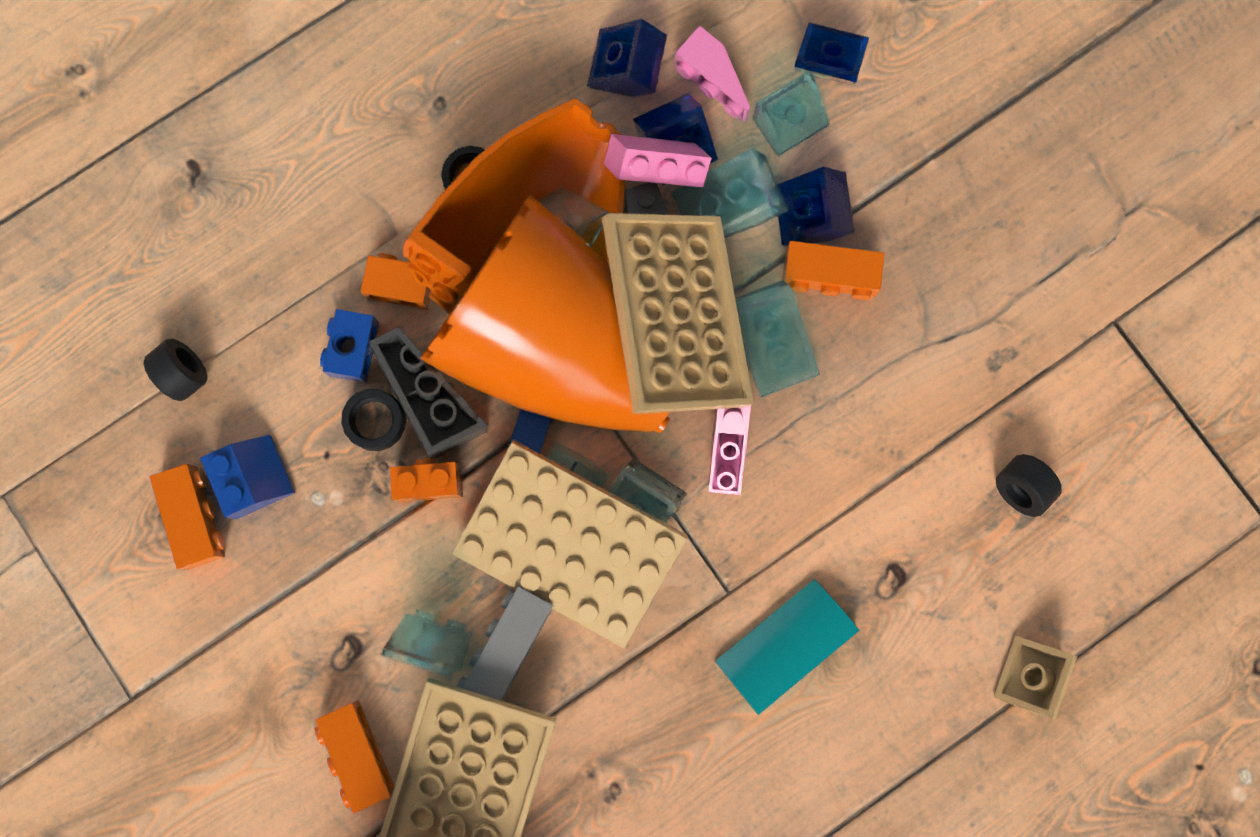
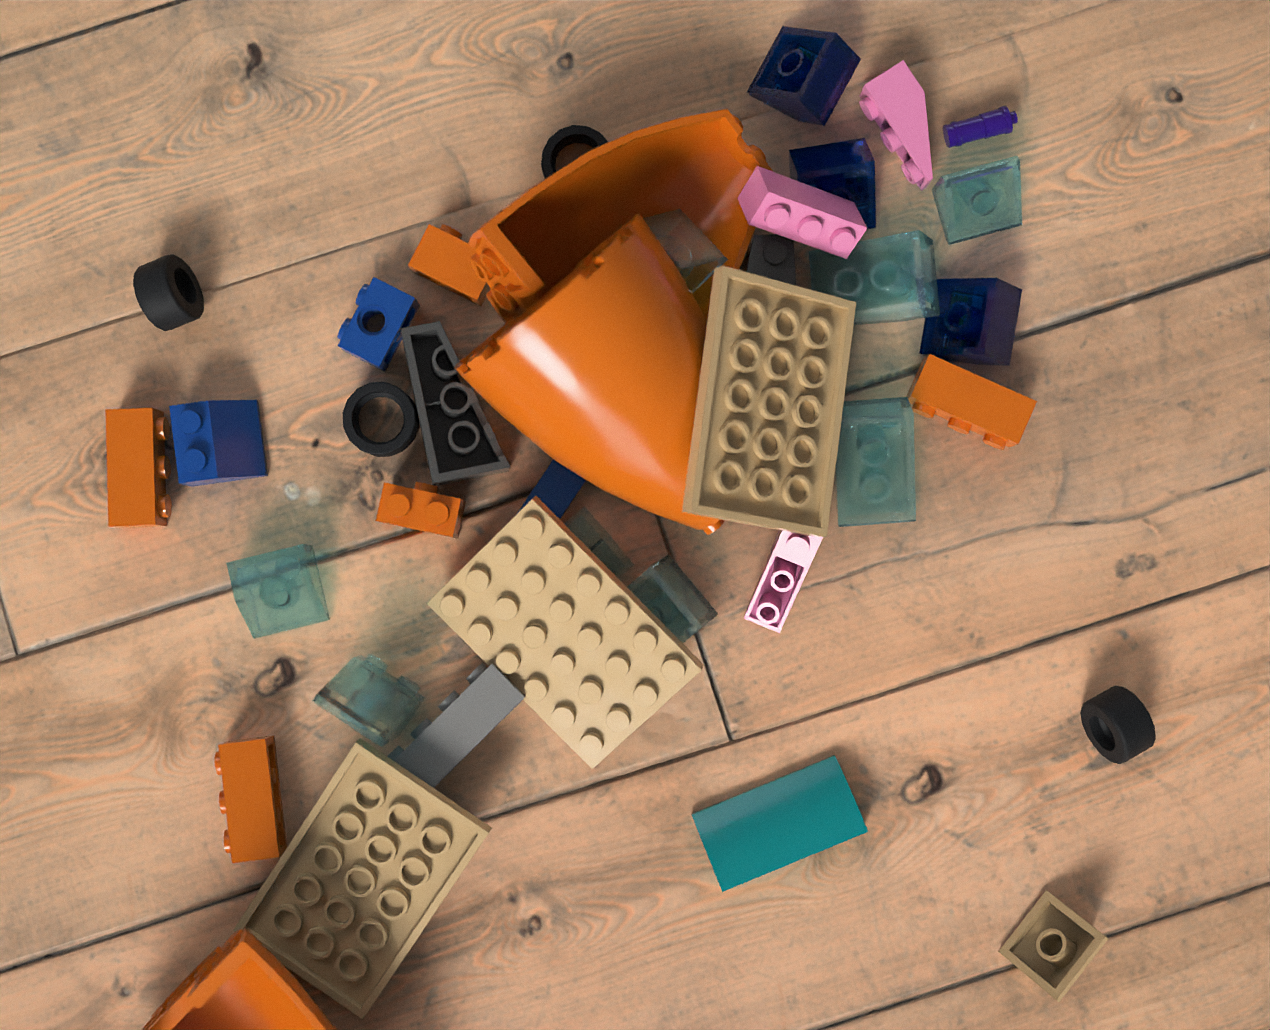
camera: 20 degrees right, 5 degrees up
(329, 580) = (279, 590): none -> clear light blue slope
(774, 60) = (982, 126): none -> dark purple piece
(831, 54) = (1051, 141): clear blue slope -> none

